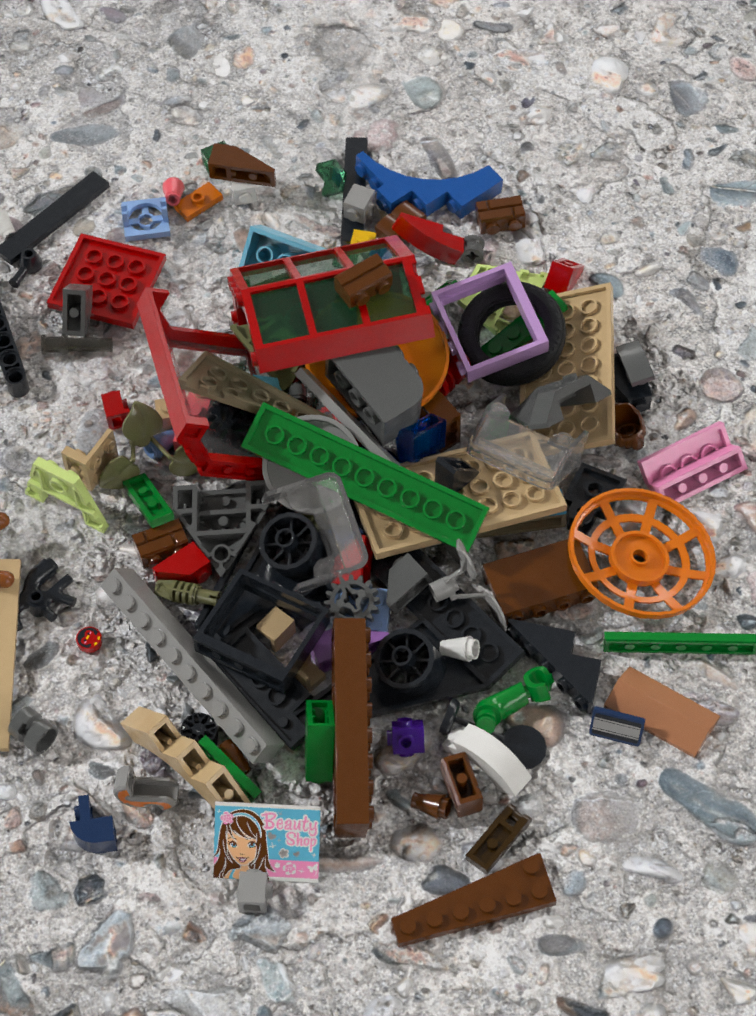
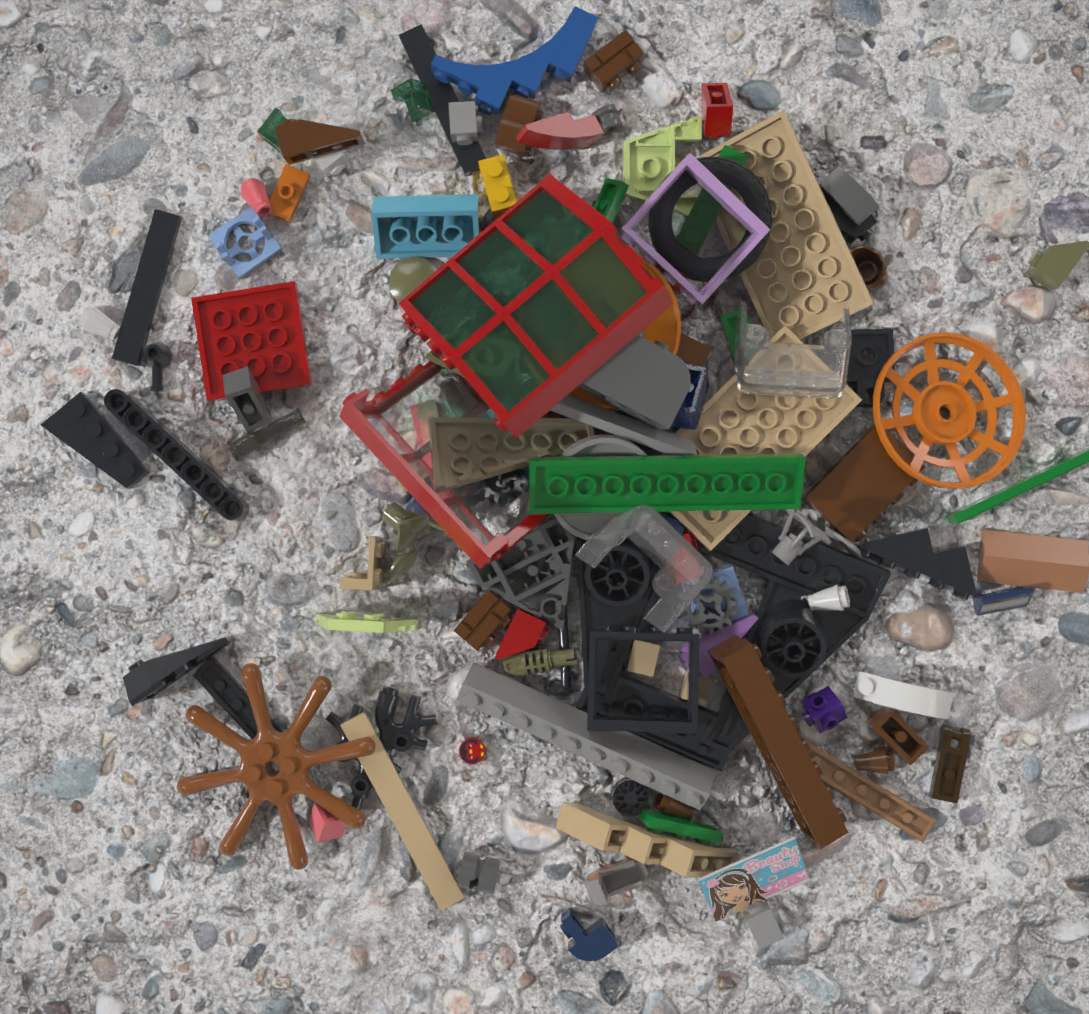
camera: 25 degrees left, 30 degrees up
(115, 409) = (352, 491): red brick -> none
(148, 500) = (446, 582): green plate -> none
(319, 741) = (750, 758): green slope -> none
(363, 281) = (579, 288): reddish brown brick -> none
(405, 582) = (746, 554): dark grey slope -> none
(412, 832) = (872, 795): none -> medium nougat tile
(453, 472) = (742, 421): black slope -> none
(495, 897) = (979, 813): reddish brown wing -> none
(505, 703) = (885, 641): green piece -> none
(521, 740) = (923, 661): black piece -> none
(543, 405) = (799, 300): dark grey wedge -> none
(693, 463) = (945, 278): bright pink slope -> none

